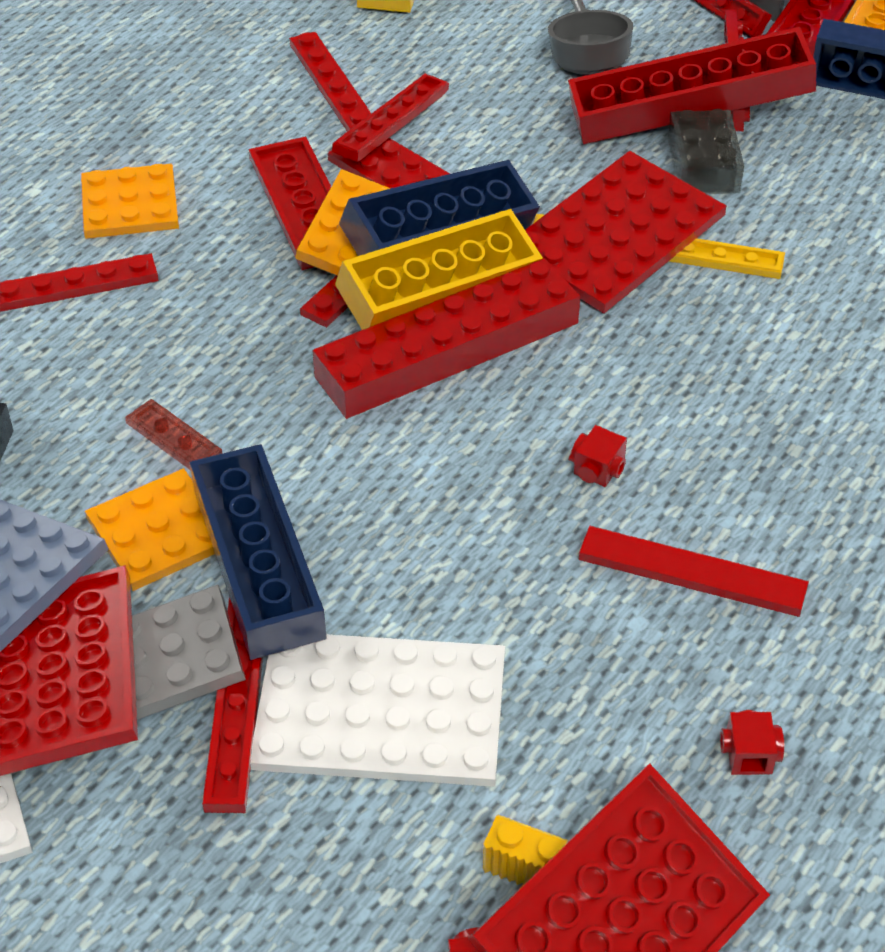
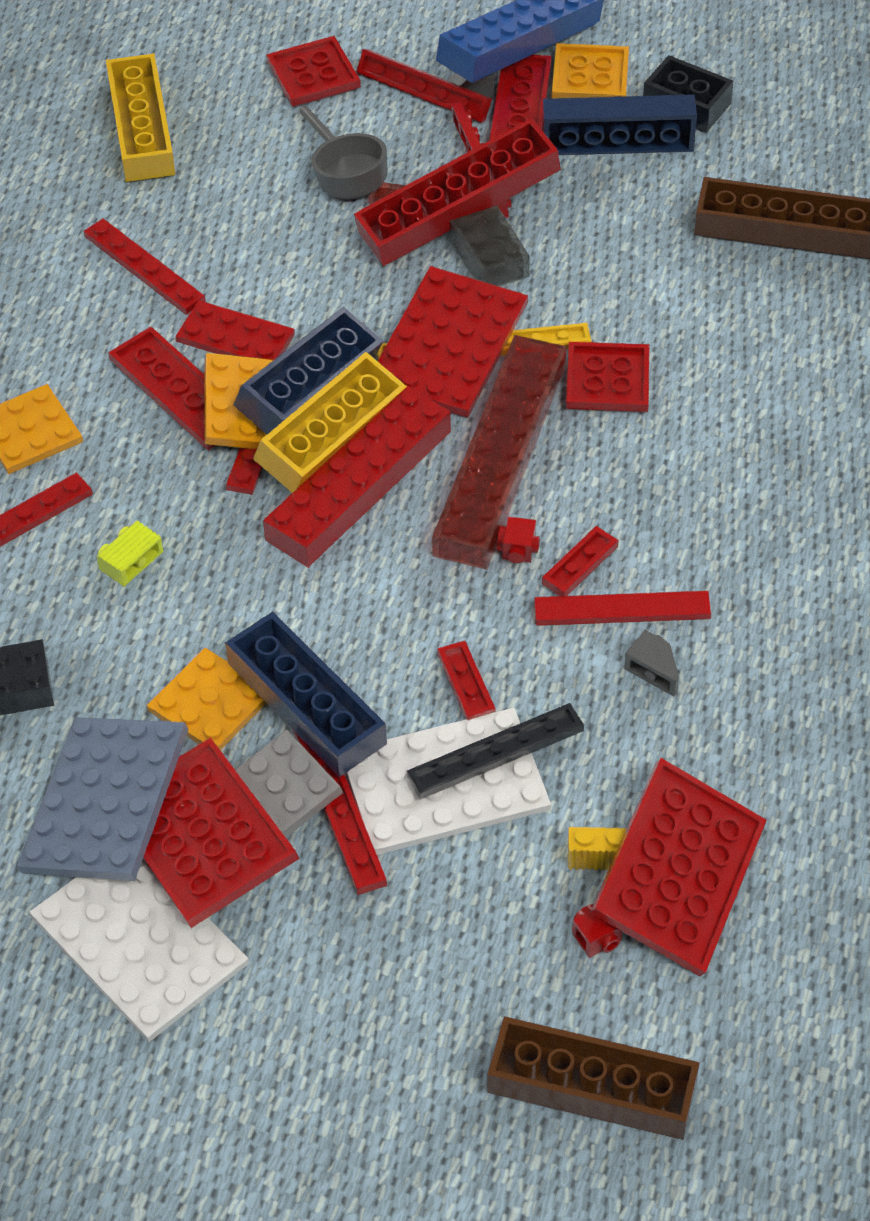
camera: 20 degrees left, 5 degrees up
(158, 347) = (129, 553): none -> neon yellow brick
(171, 433) = (180, 623): clear red tile -> none
(390, 117) = (215, 287): red tile -> none
(454, 689) = (495, 751): none -> black tile
(461, 596) = (465, 680): none -> red plate
(618, 357) = (499, 452): none -> clear red brick
(662, 502) = (580, 562): none -> red plate
(701, 644) = (653, 661): none -> dark grey slope
(752, 743) = (715, 721): red brick -> none
(785, 313) = (608, 376): none -> red plate

